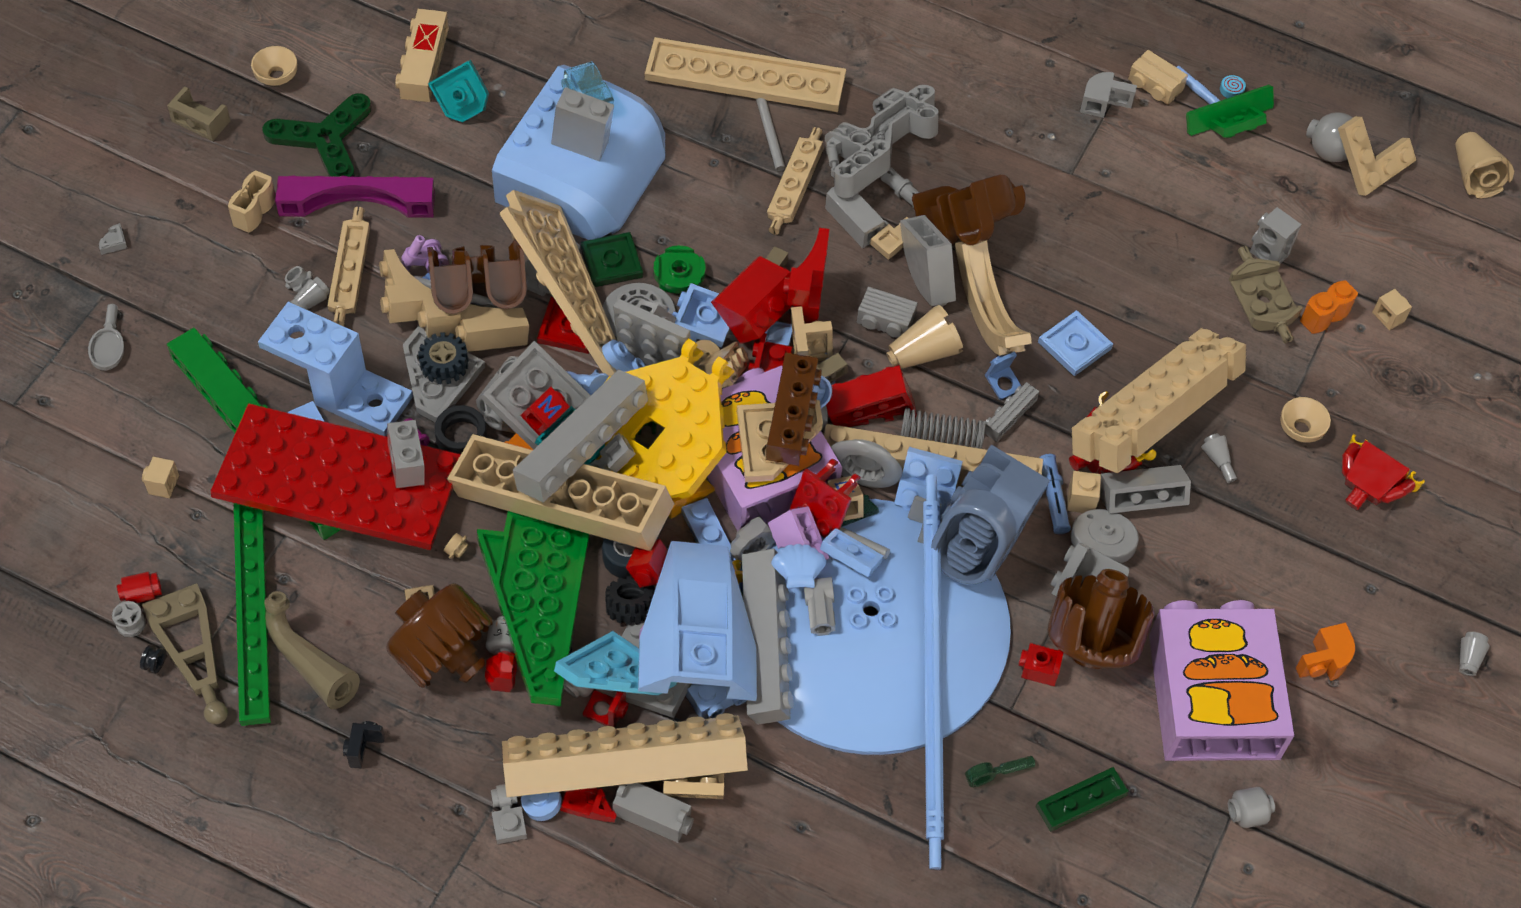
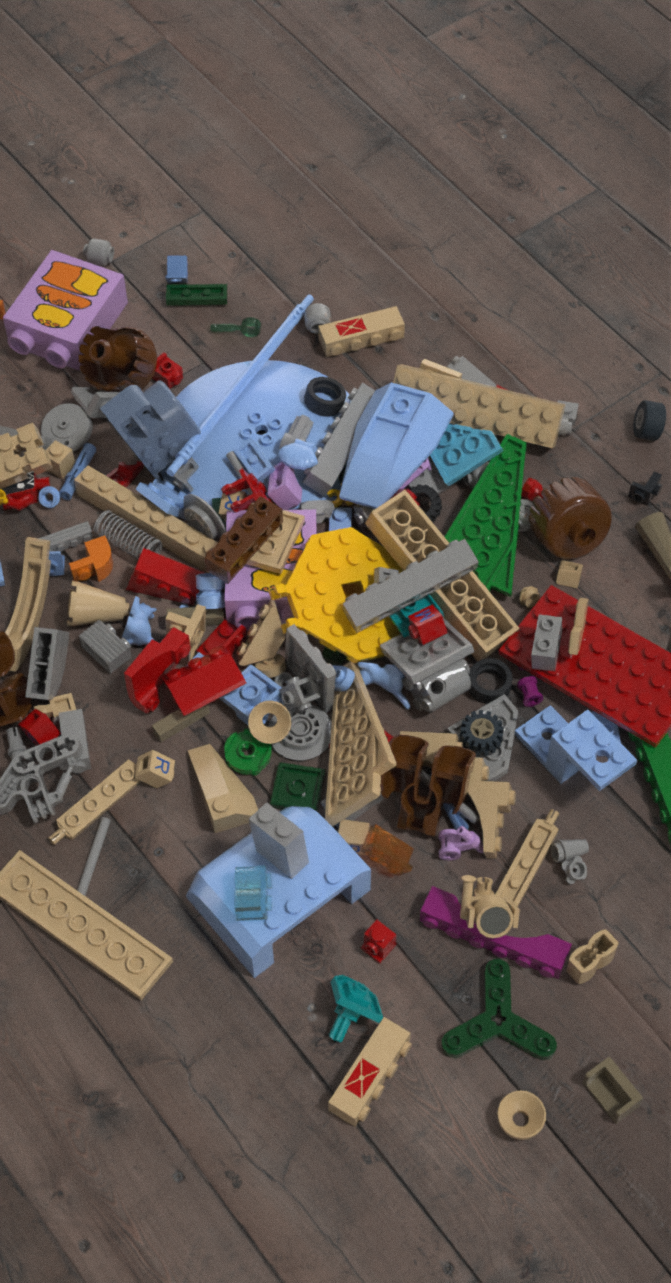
camera: 150 degrees left, 0 degrees up
(358, 177) = (491, 913): none -> tan piece
(375, 480) = (579, 624): none -> tan tile
(390, 842) = (649, 420): none -> black wheel
(462, 143) = (378, 941): none -> red brick
(484, 220) = (387, 850): none -> clear orange bracket
(668, 283) = (274, 733): none -> tan piece
(679, 220) = (223, 793): none -> tan wedge
(757, 211) = (155, 769): none -> tan brick
(816, 664) = (328, 386): none -> black tyre
(833, 829) = (361, 331): none -> tan brick
(865, 339) = (138, 628): none -> light blue animal
(893, 204) = (39, 727): none -> red brick
(901, 822) = (316, 315): none -> light grey head
(957, 394) = (98, 561): none -> orange brick
(1061, 448) = (45, 501): none -> light blue plate
(1129, 822) = (177, 269): none -> medium blue bracket

